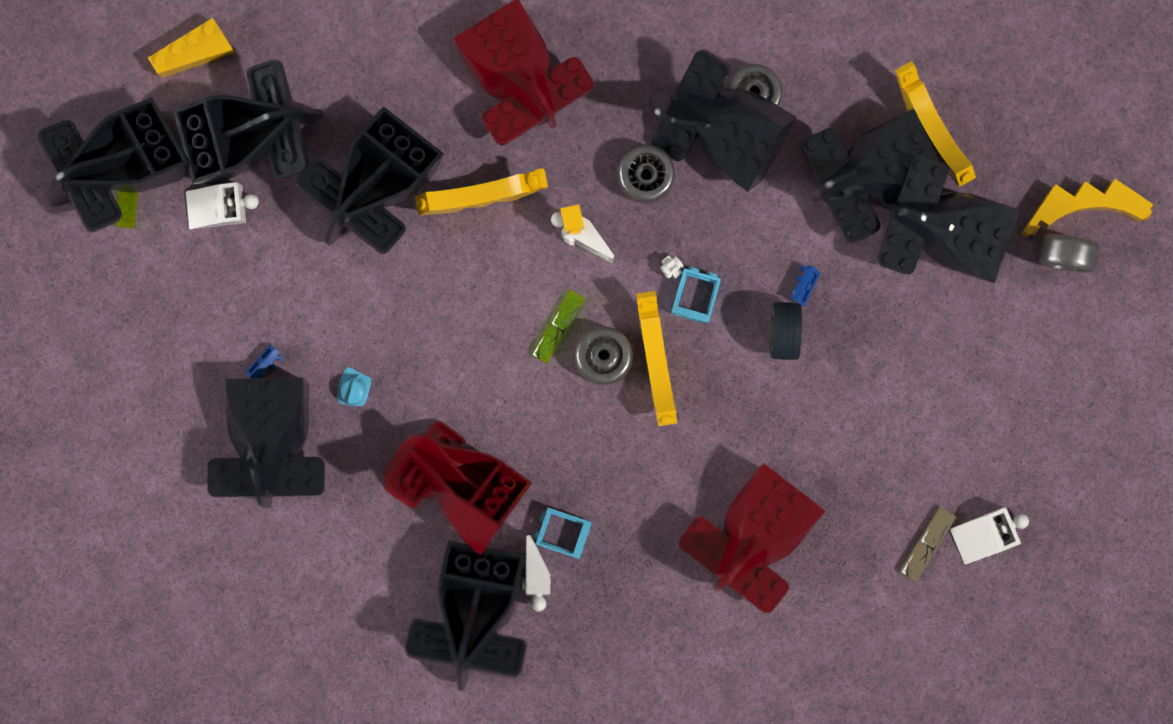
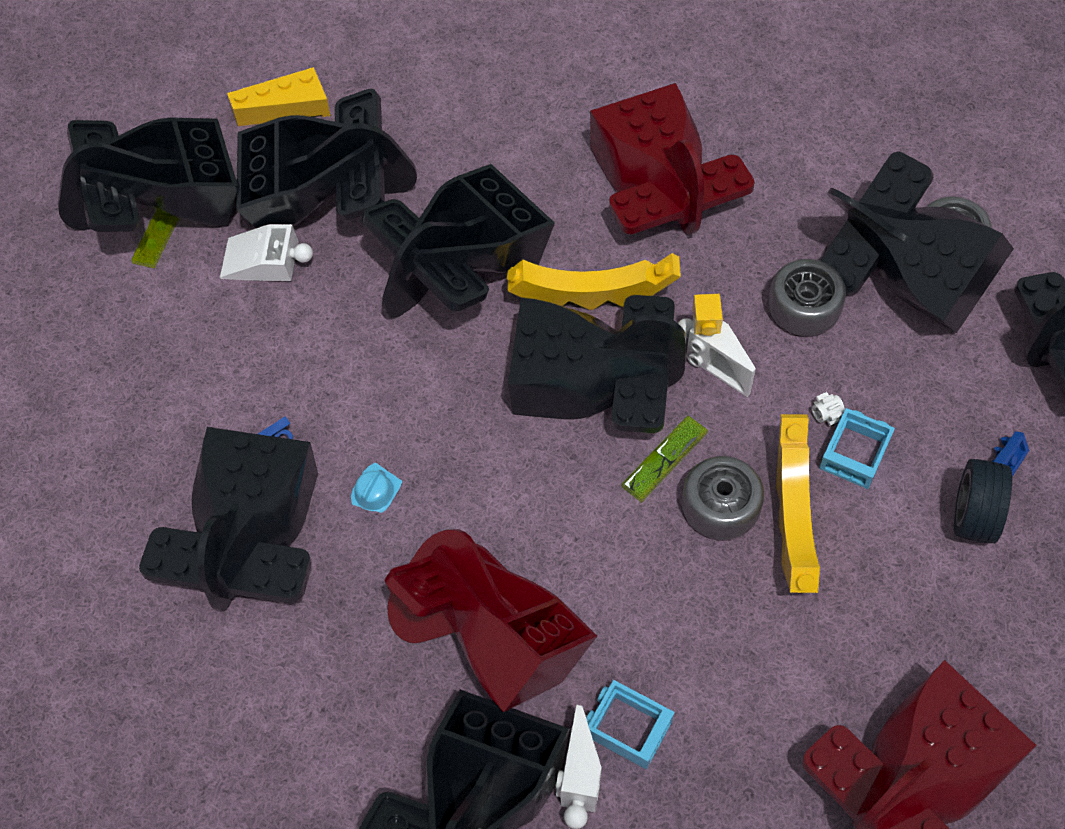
camera: 10 degrees right, 25 degrees down
(486, 266) = (579, 365): none -> black brick

